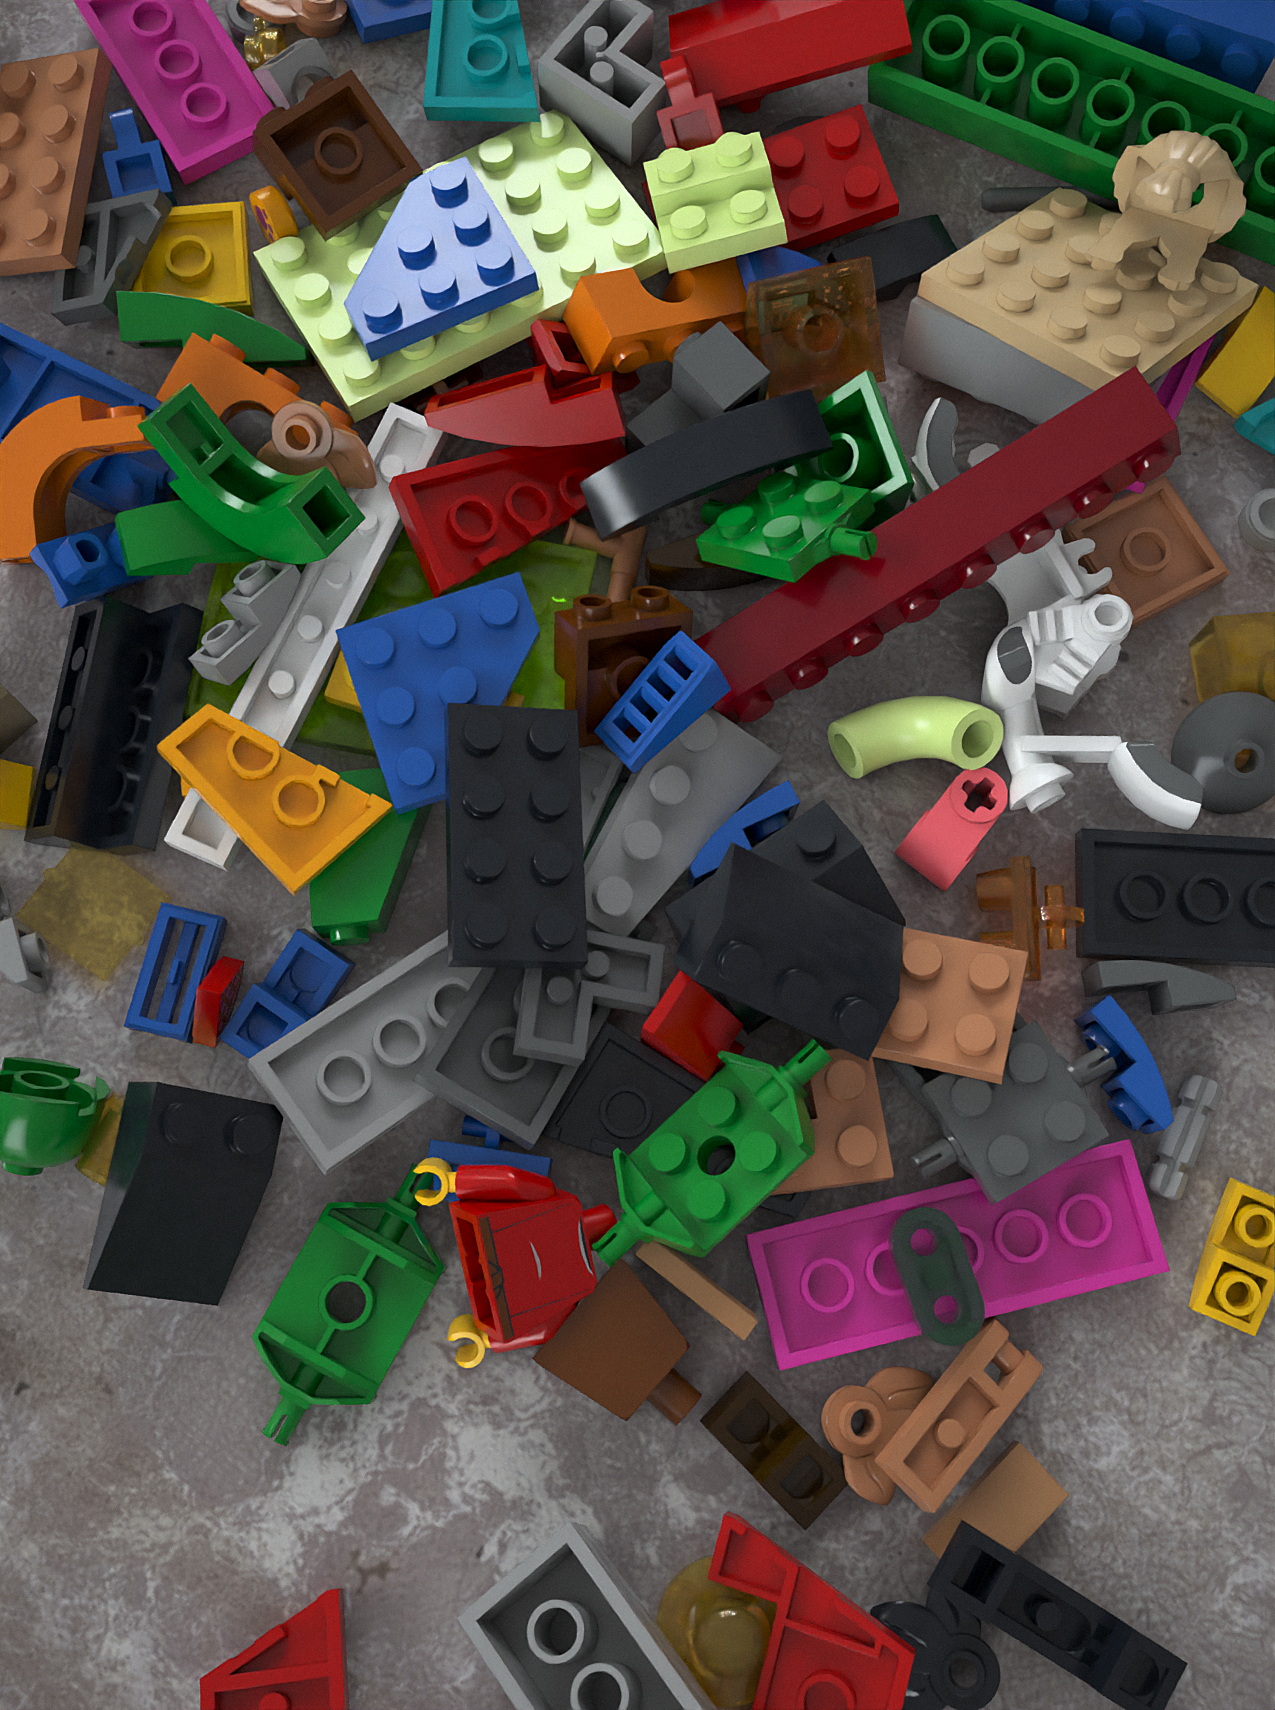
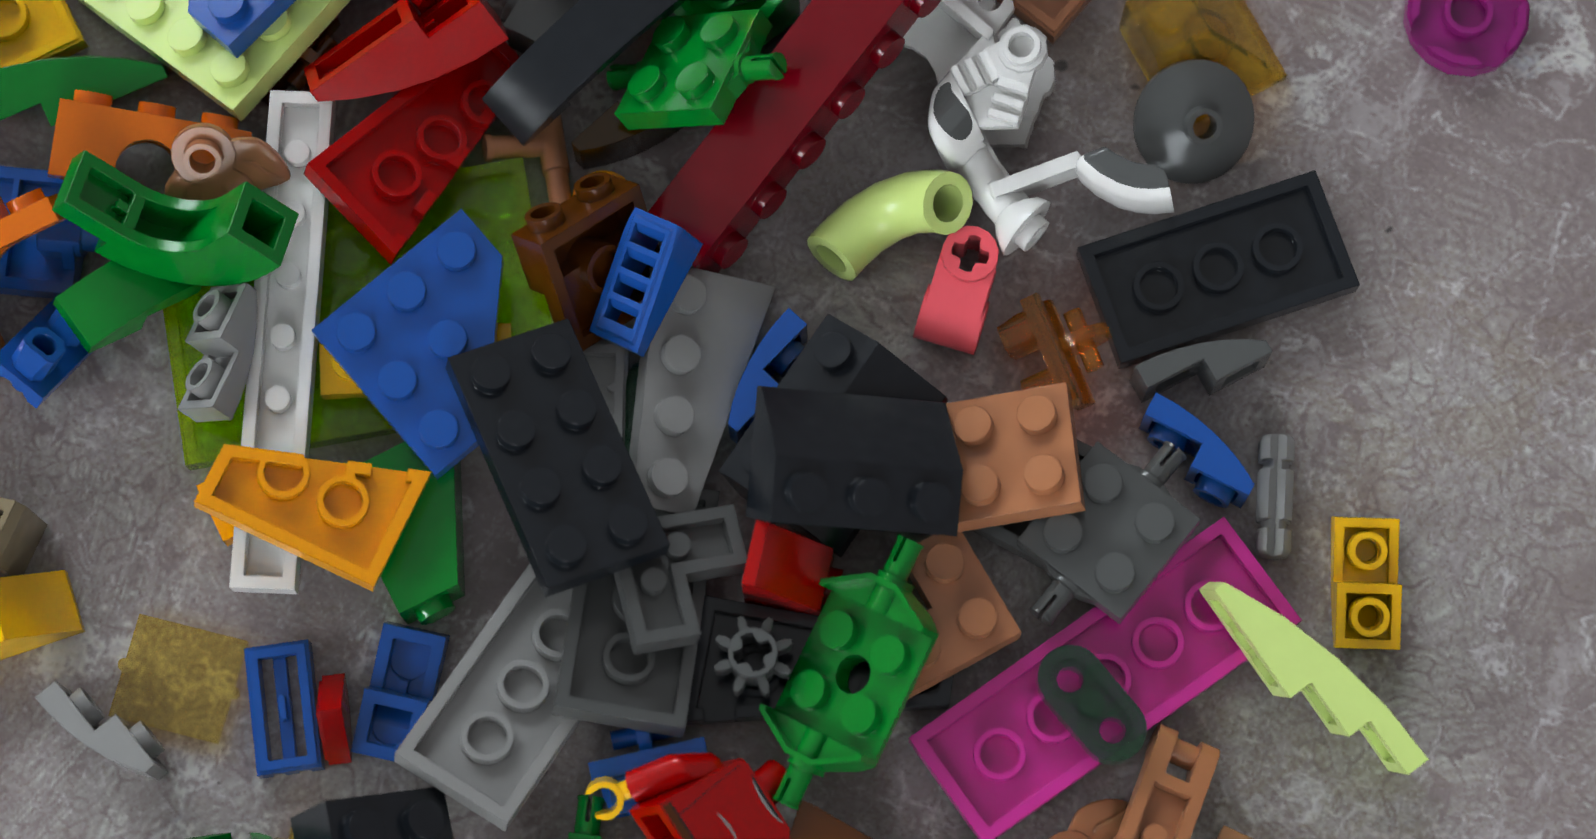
camera: 15 degrees left, 0 degrees up
(113, 704) = (128, 501): black slope -> none
(642, 1088) = (743, 671): none -> dark grey gear
(698, 1288) = (881, 801): medium nougat tile -> none
(1155, 1319) = (1295, 662): none -> yellowish green slope

